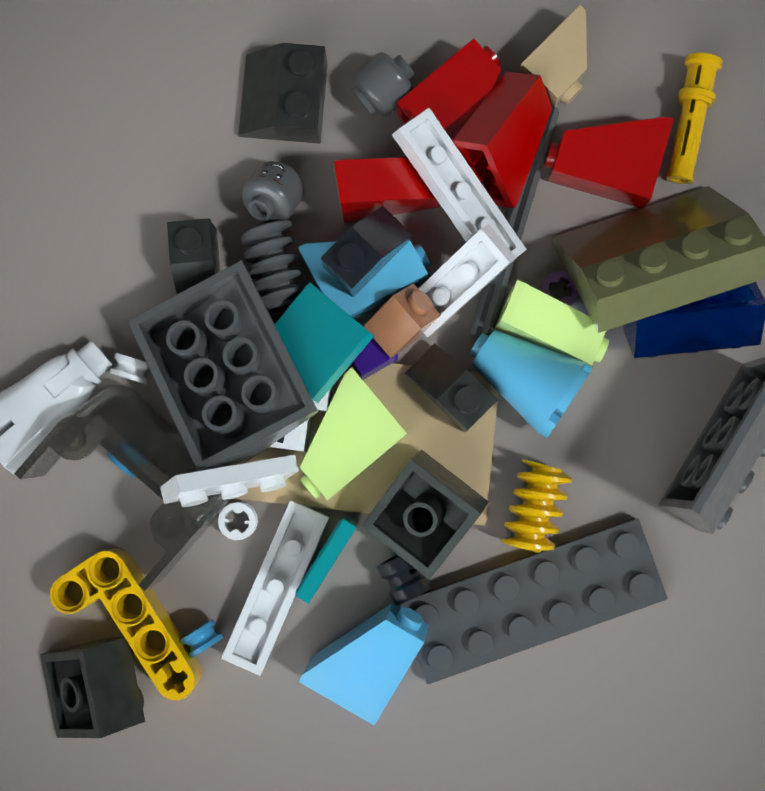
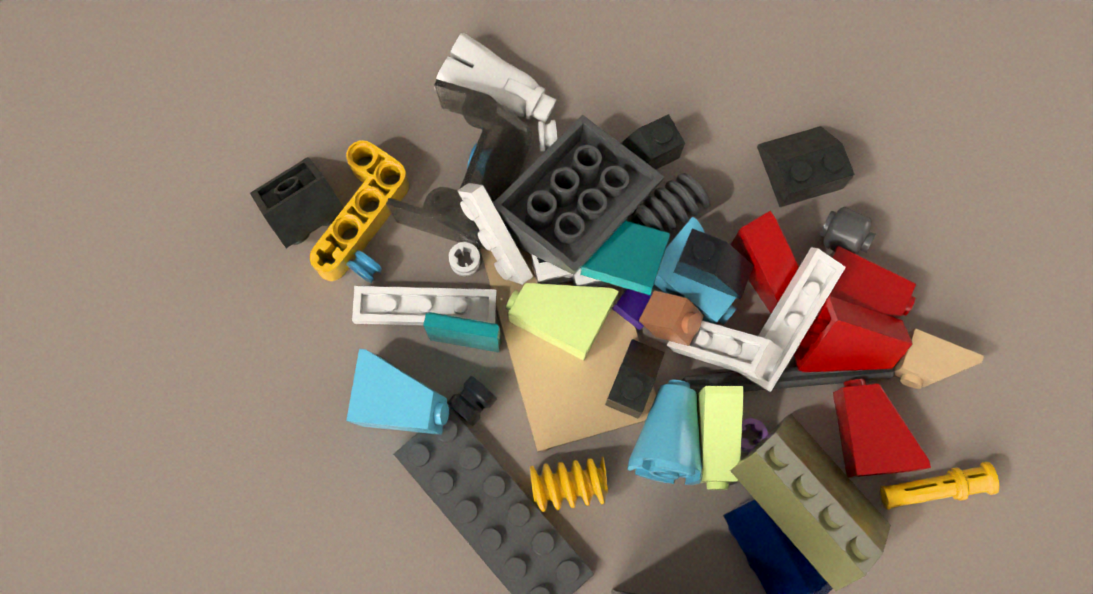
camera: 60 degrees right, 10 degrees down
(273, 192) = (726, 183): dark grey head -> none
(425, 513) = (528, 394): pearl dark grey slope -> none

